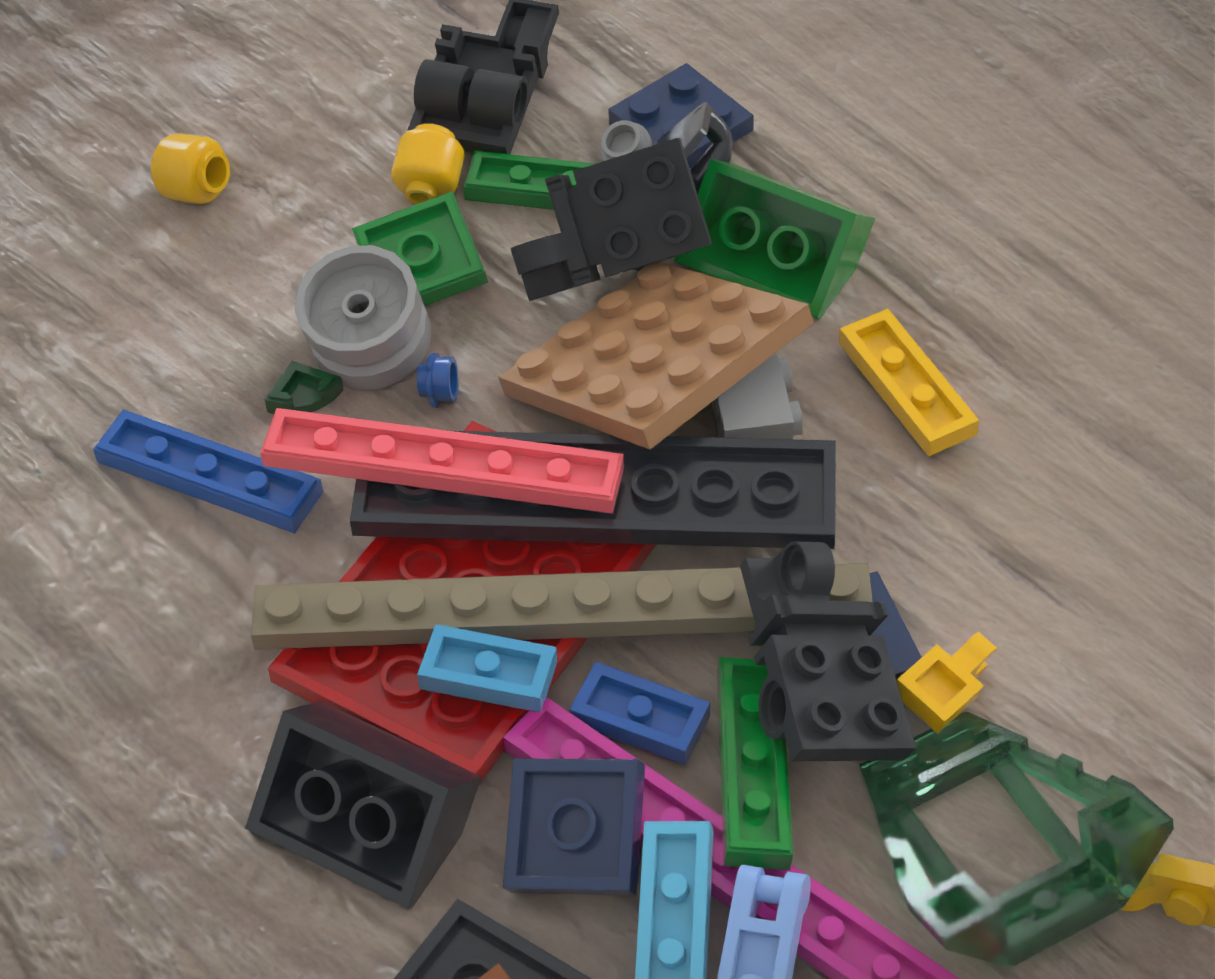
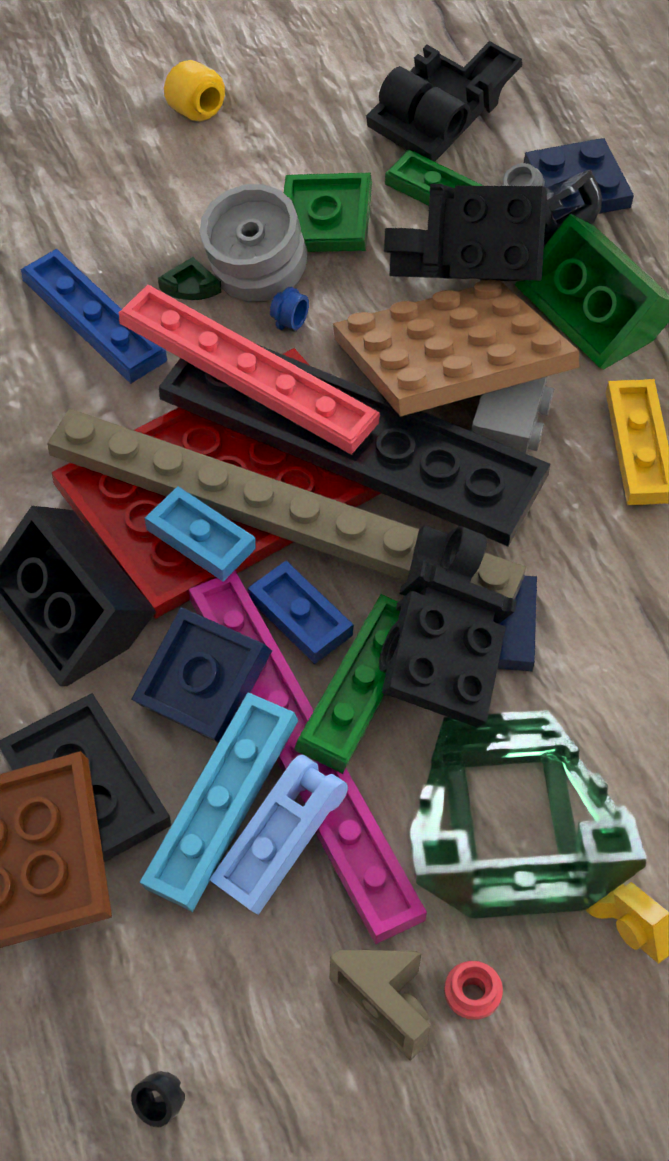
camera: 20 degrees right, 5 degrees up
(427, 163) = (367, 145): yellow head -> none
(943, 684) = (538, 683): yellow plate -> none

